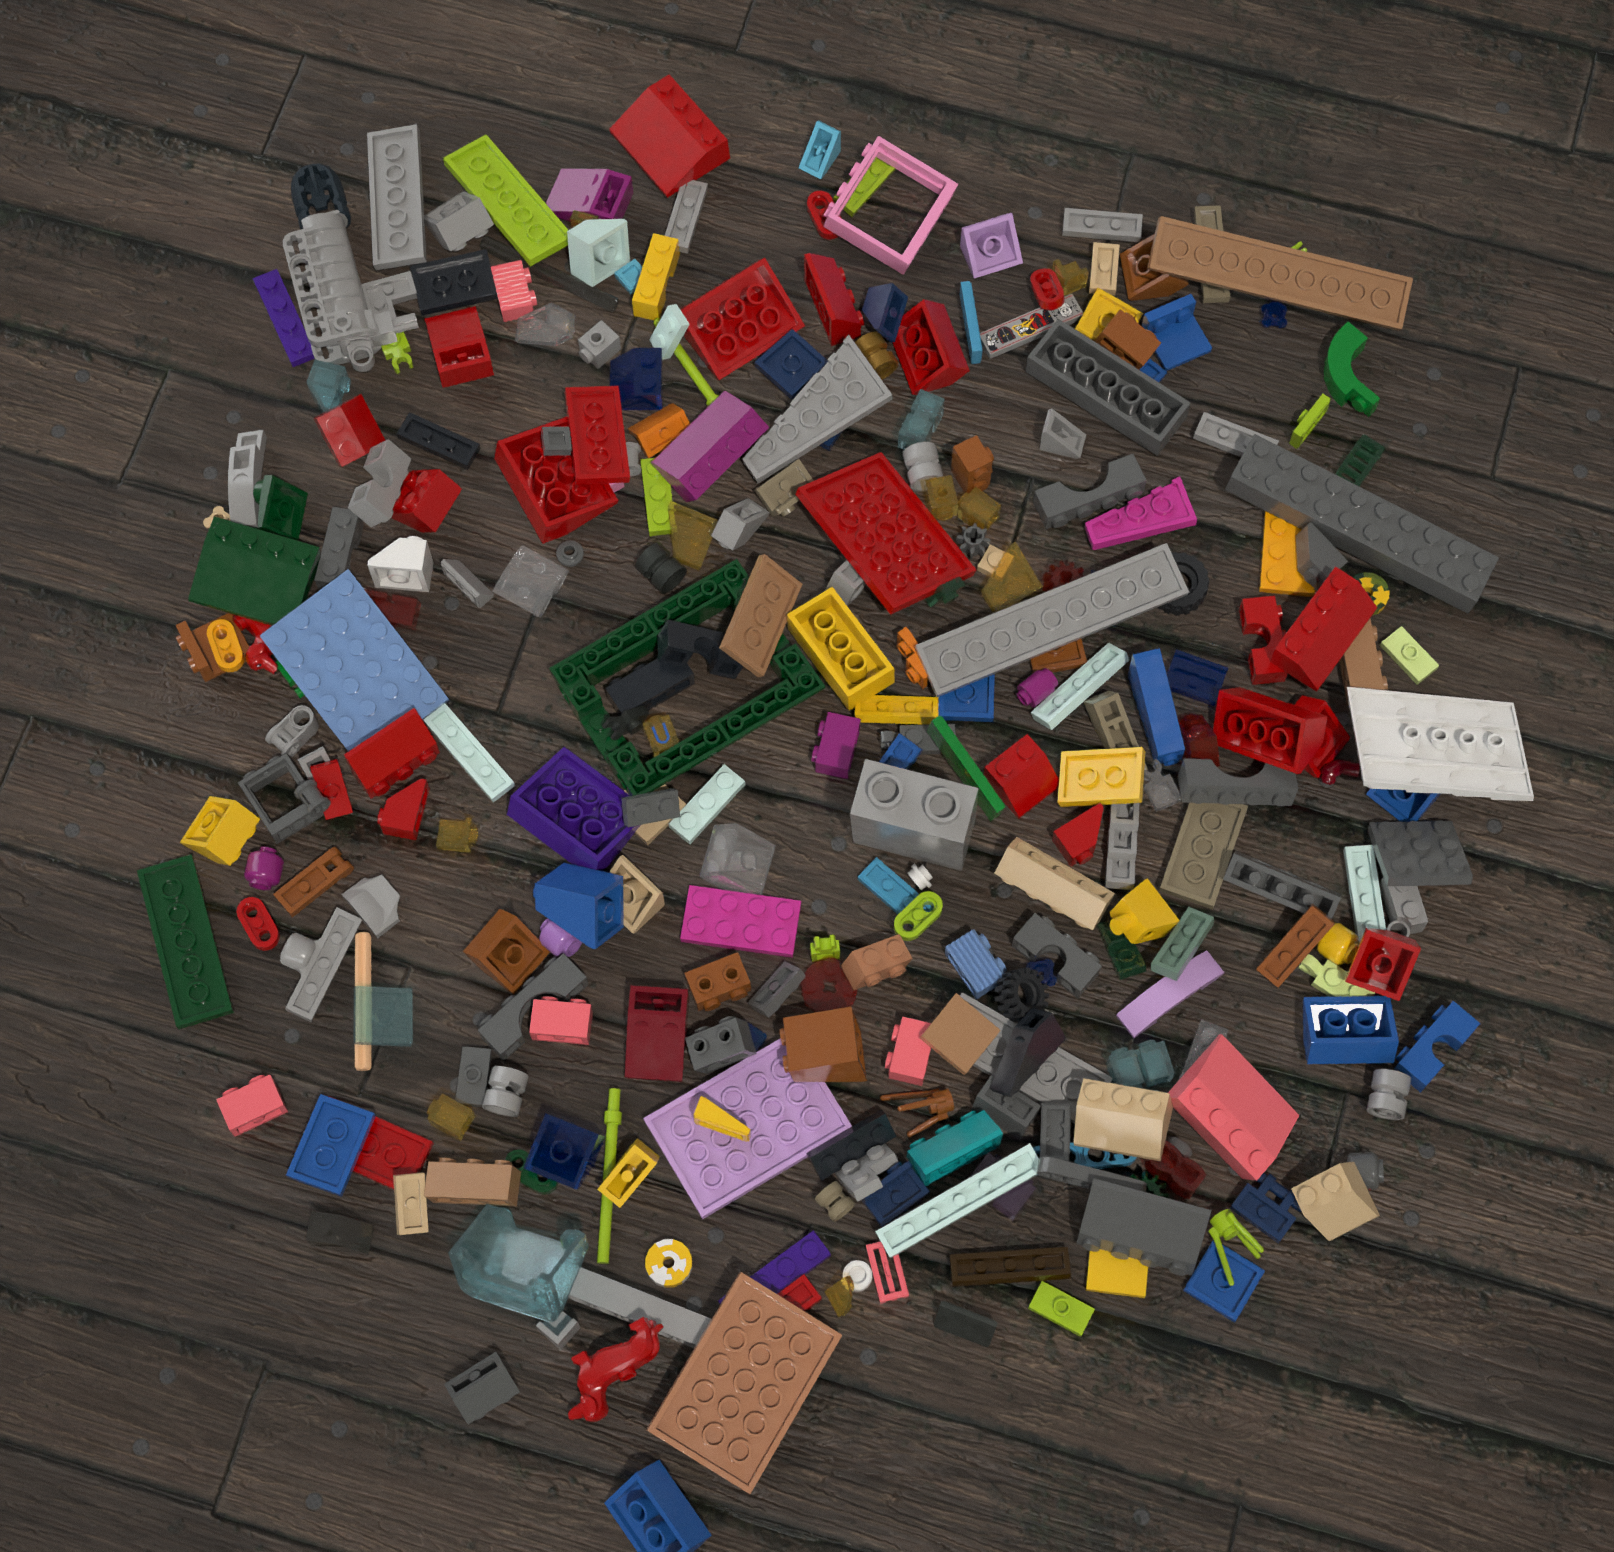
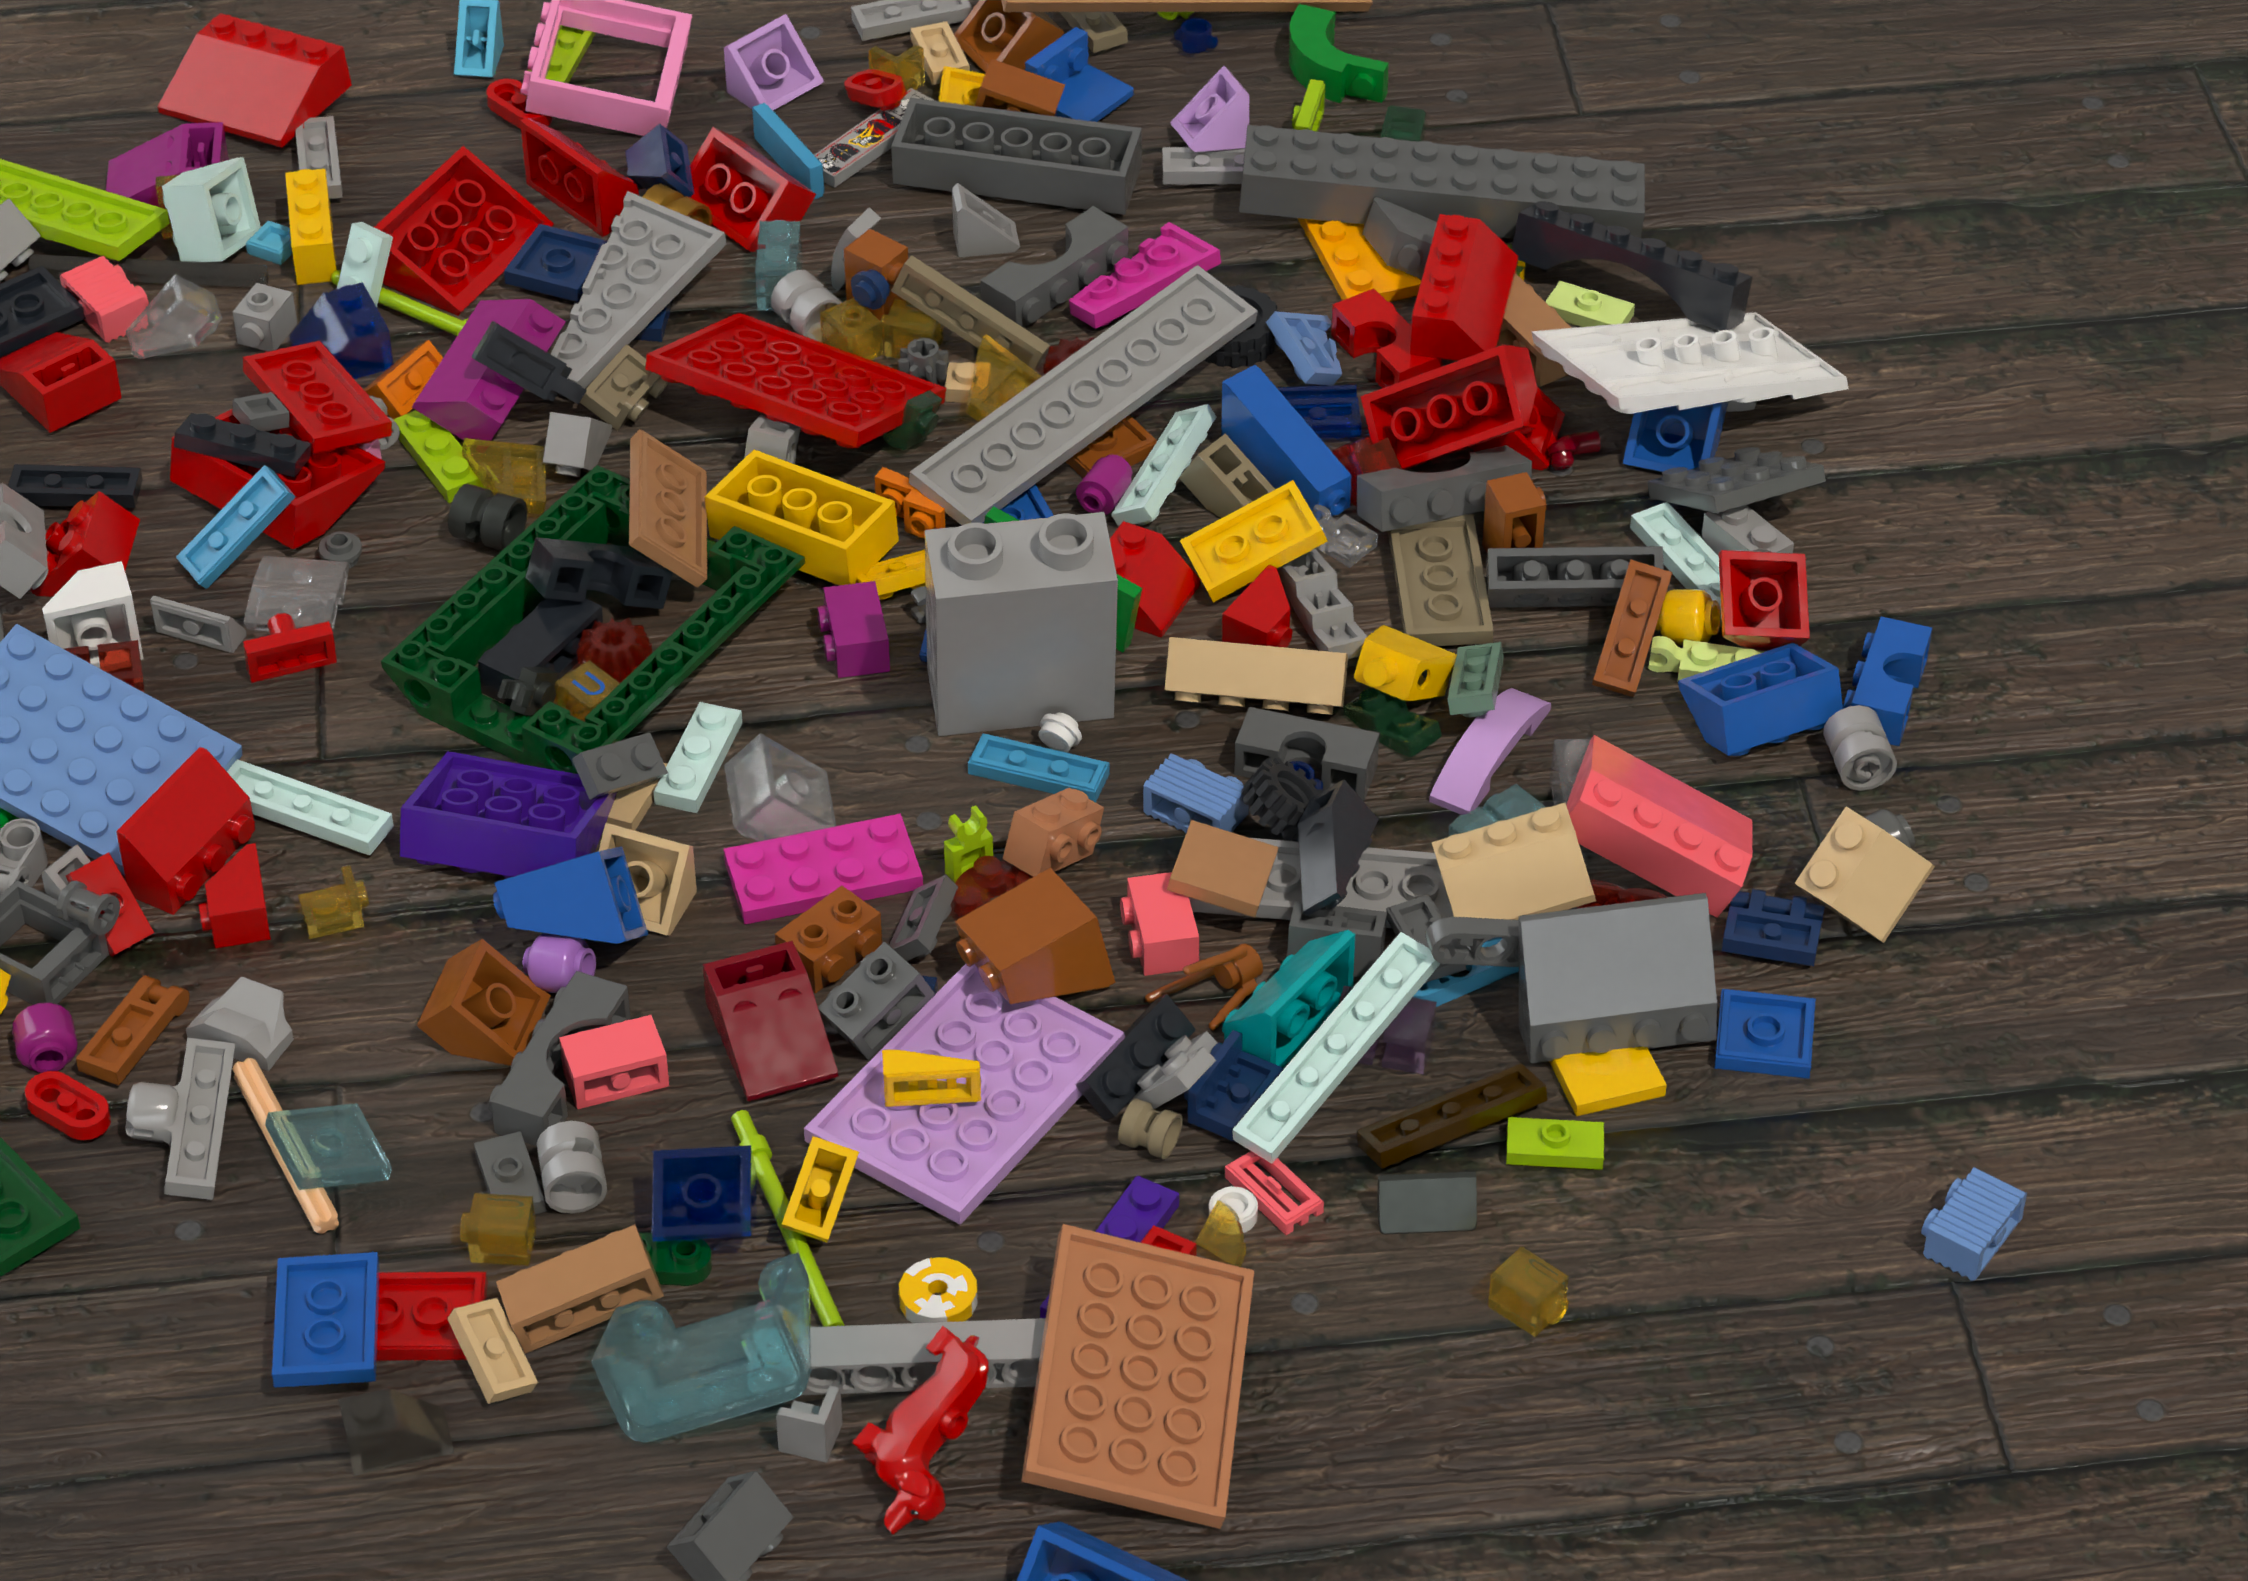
camera: 25 degrees left, 25 degrees down
(251, 1104) = (169, 1322): coral brick -> none
(507, 625) = (289, 649): none -> red tile
(510, 522) = (235, 527): none -> dark azure tile
(535, 464) = (242, 444): none -> black plate
(700, 700) = (614, 647): none -> clear red gear
(724, 467) = (526, 364): none -> black hinge
(917, 917) = (1084, 763): lime plate -> none
(959, 478) = (870, 289): none -> dark blue plate
(969, 431) = (856, 229): none -> light grey slope
(991, 1414) = (1529, 1292): none -> clear yellow brick
(1007, 518) = (965, 312): none -> dark tan plate
(1214, 622) = (1307, 346): none -> medium blue wing
(1228, 1226) = (1735, 965): lime plant -> none
(1245, 402) = (1216, 115): none -> lavender slope
(1265, 830) = (1513, 513): none -> dark orange brick
(1269, 1478) = (1973, 1223): none -> medium blue brick
(1478, 683) = (1703, 290): none -> black arch

